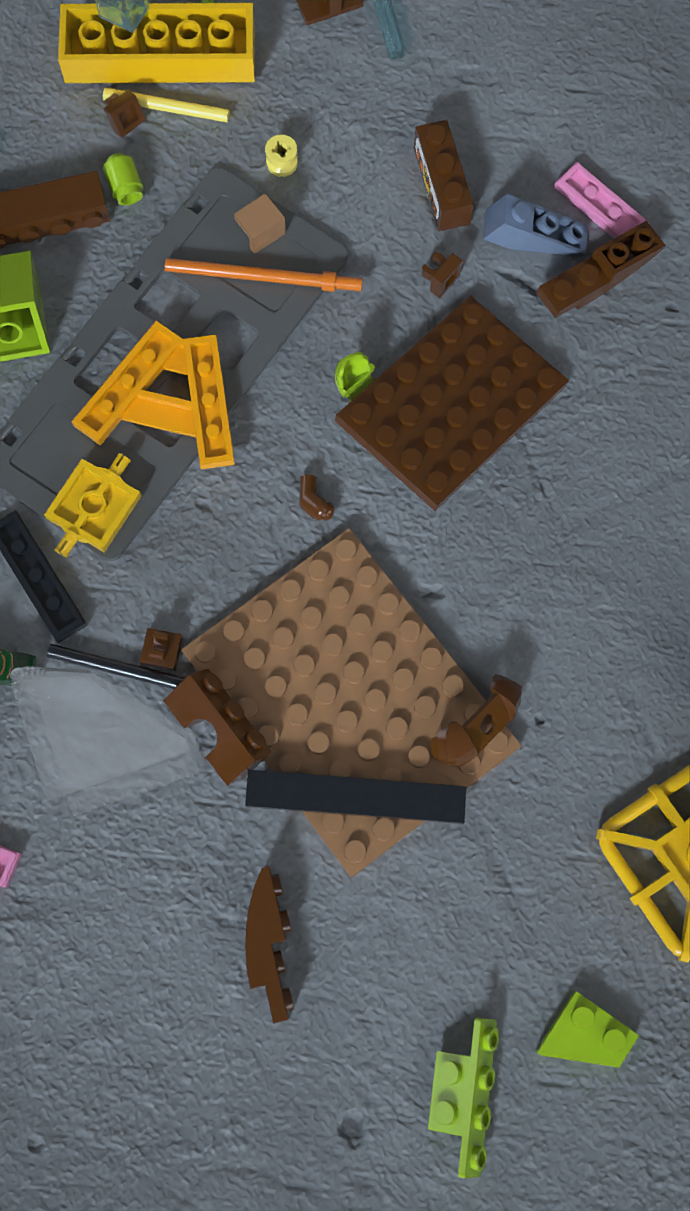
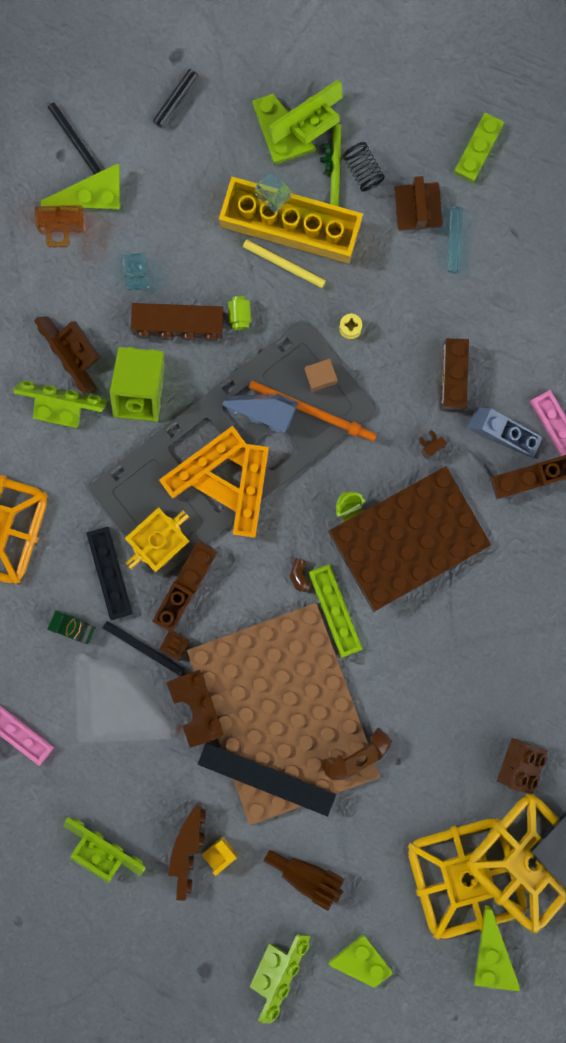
camera: 25 degrees right, 10 degrees up
(123, 112) = (253, 263): reddish brown tile -> none
(133, 993) = (98, 855): none -> lime bracket
(153, 559) = (185, 586): none -> reddish brown slope
(200, 283) = (265, 408): none -> sand blue slope
(319, 937) = (219, 855): none -> yellow panel
(380, 533) = (335, 610): none -> lime tile
(468, 929) = (310, 880): none -> reddish brown piece

